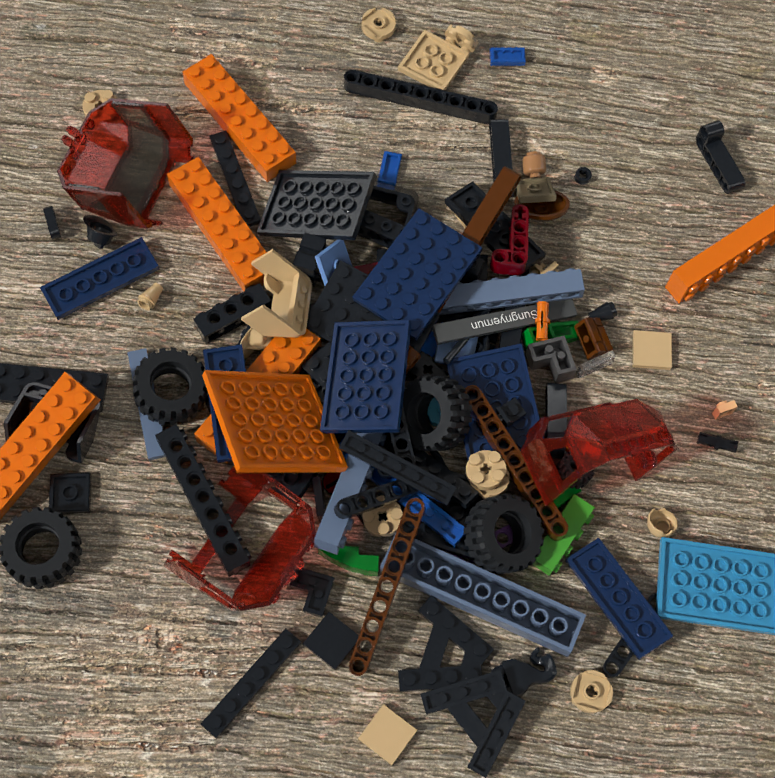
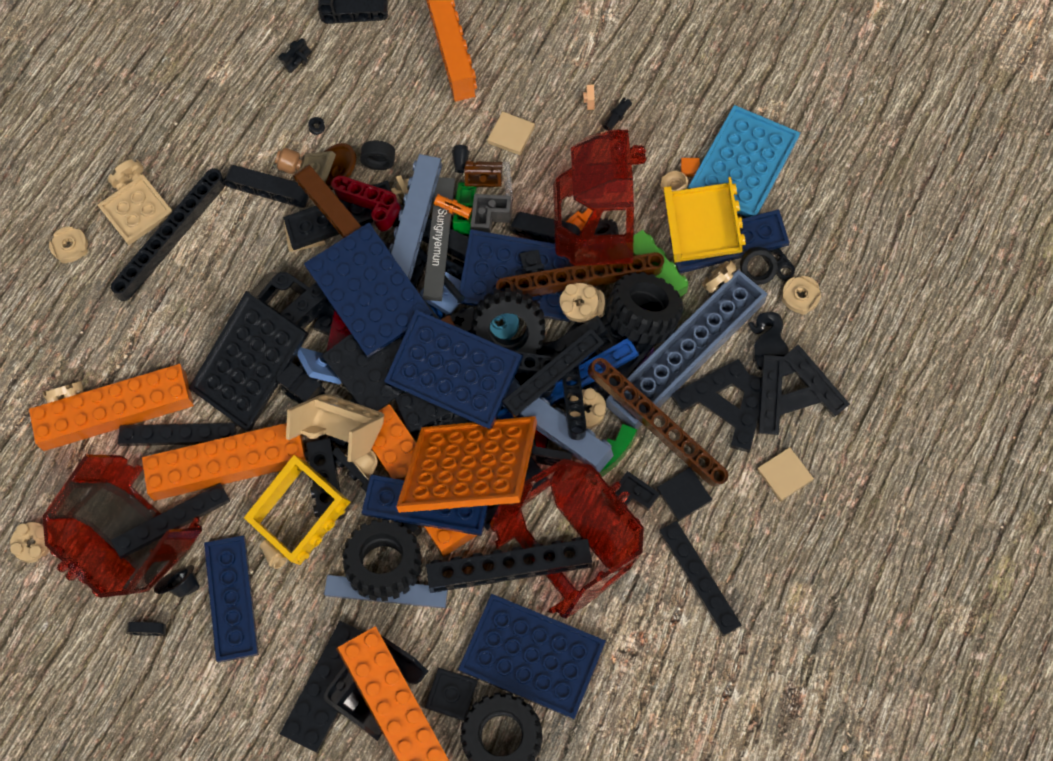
camera: 60 degrees left, 0 degrees up
(125, 552) = (532, 656): none -> dark blue plate
(152, 203) = (171, 519): none -> black plate
(200, 273) = (276, 491): none -> yellow window
(238, 74) = (63, 392): none -> tan plate
(390, 168) = (230, 287): blue tile -> none
(507, 57) = (162, 143): blue plate -> none
(571, 237) = (373, 148): none -> black tyre
(573, 599) = (721, 274): none -> tan plate
(588, 639) = (754, 252): none -> black tyre
(627, 563) = (704, 221): none -> yellow panel
(647, 130) = (295, 56): none -> black hips
(690, 532) = (690, 166): none -> orange tile

